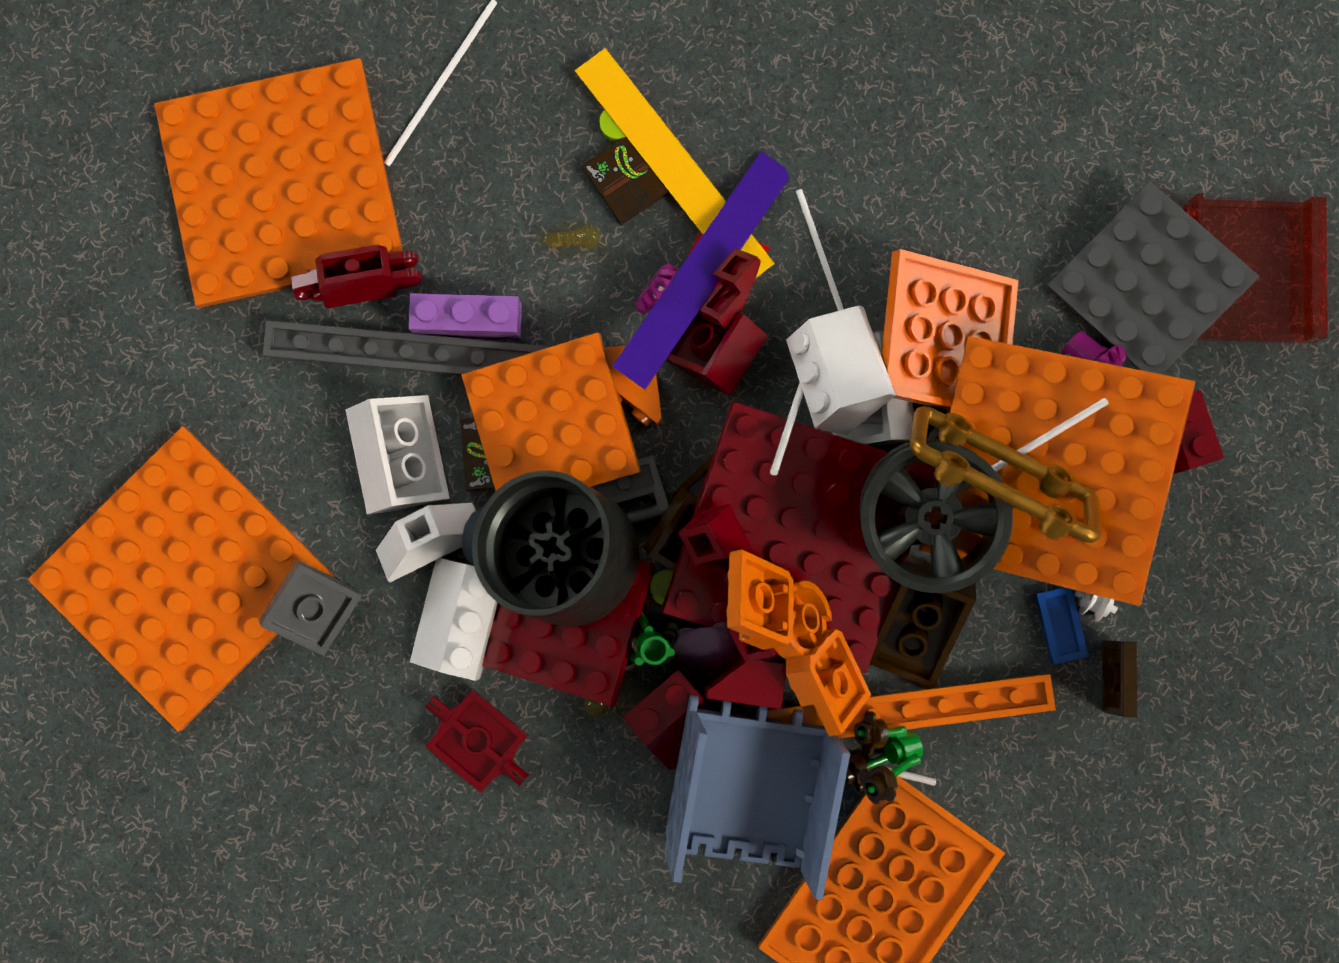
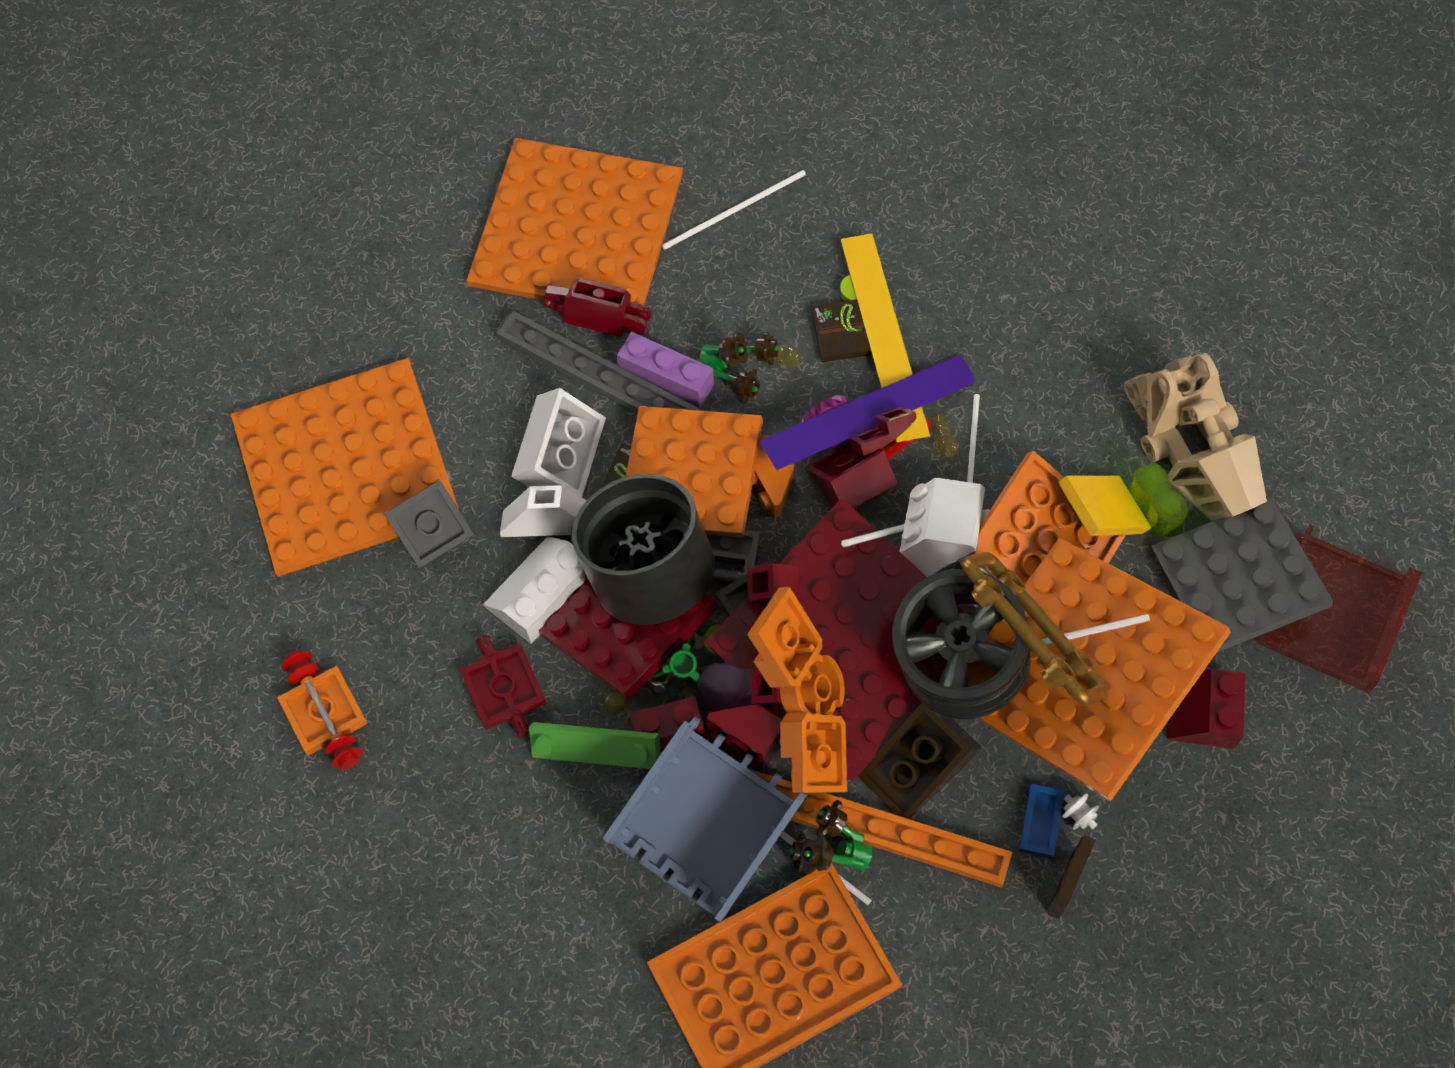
camera: 30 degrees right, 20 degrees down
(308, 852) = (322, 710): none -> orange plate
(531, 268) = (735, 350): none -> dark brown plant
(604, 764) = (594, 745): none -> bright green plate
(796, 264) = (947, 444): none -> clear yellow piece
(989, 268) = (1104, 505): none -> yellow tile
(1042, 237) = (1161, 503): none -> clear neon green brick
(1098, 176) = (1188, 392): none -> tan piece

